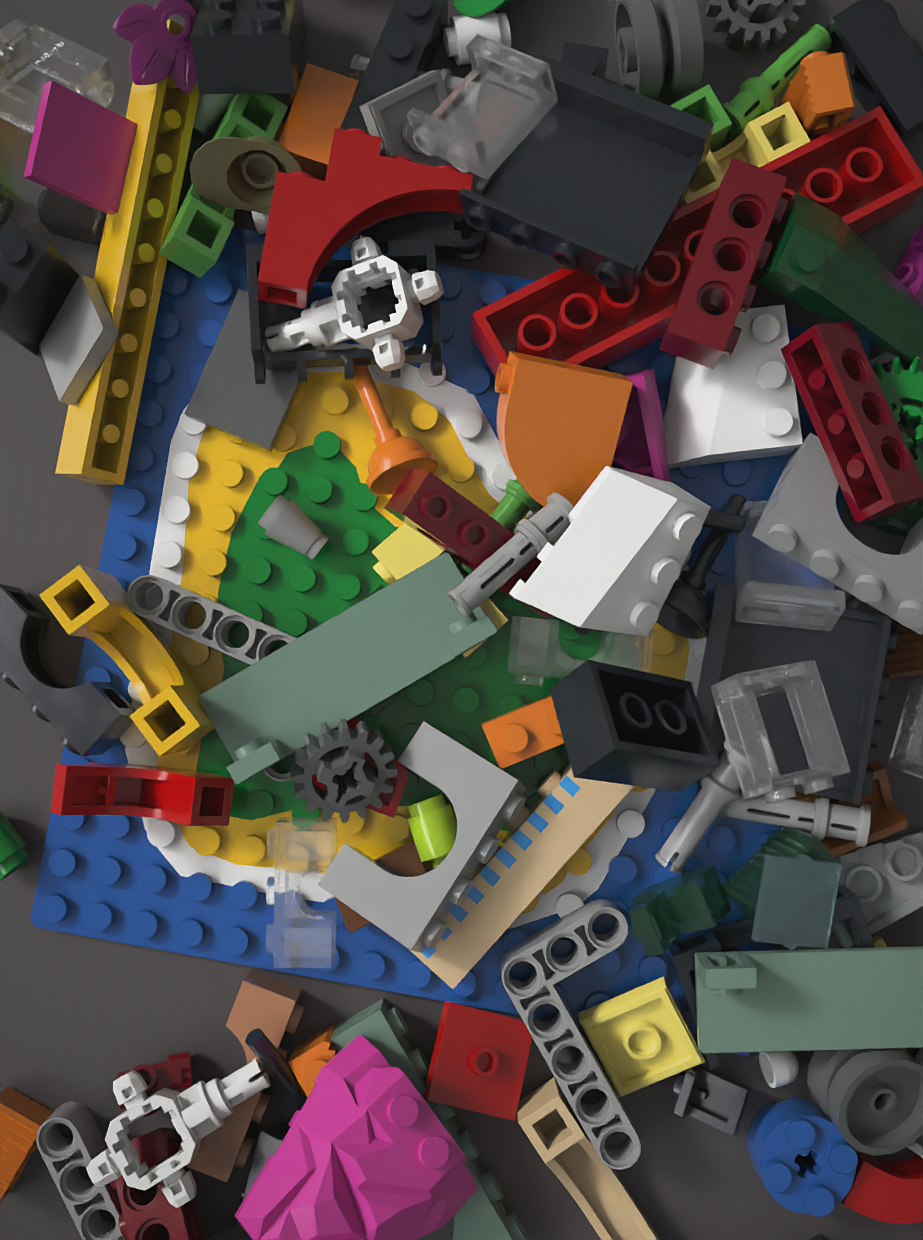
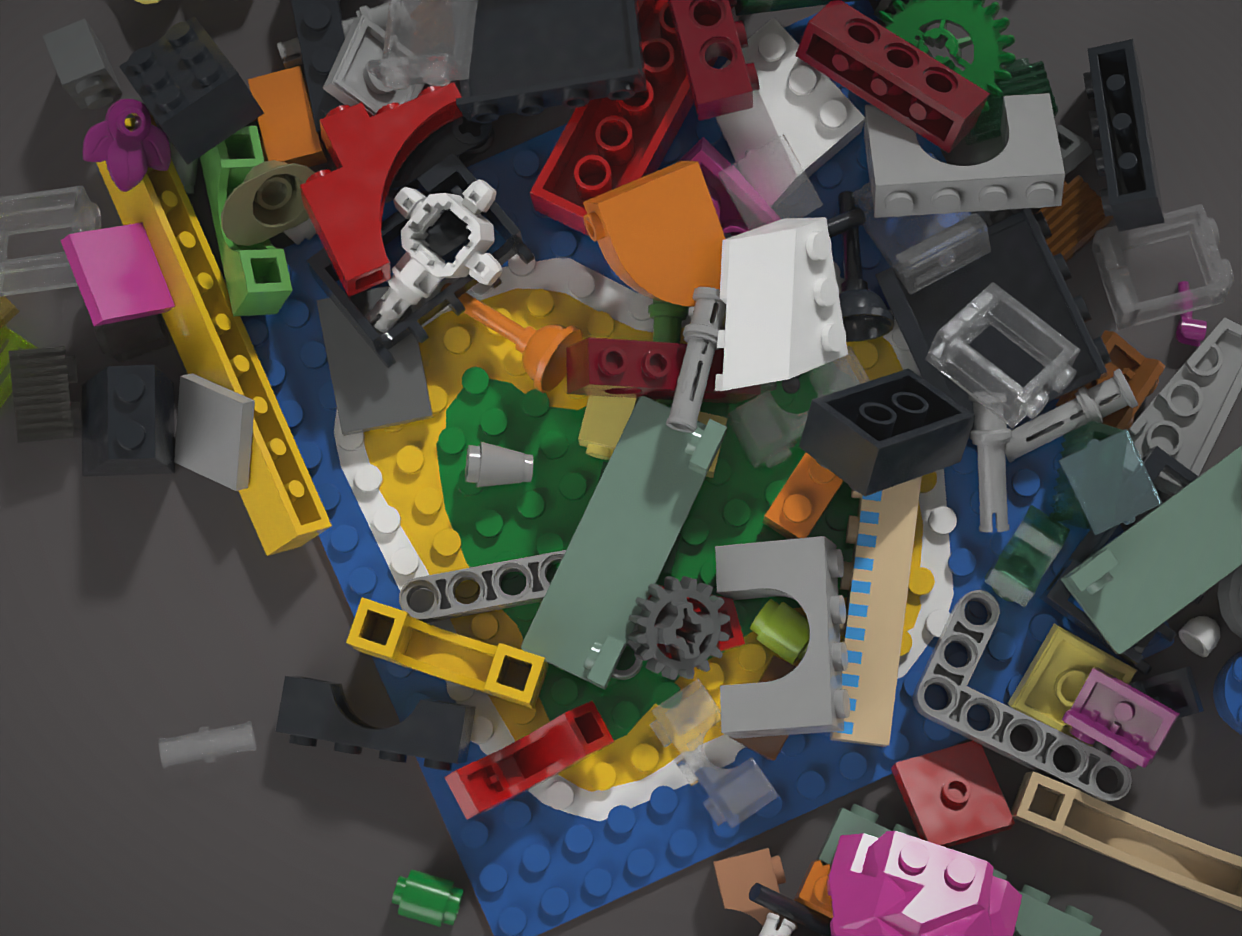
camera: 30 degrees left, 5 degrees down
(662, 1102) = (1120, 719): none -> bracket
(681, 446) = (770, 185): none -> clear piece

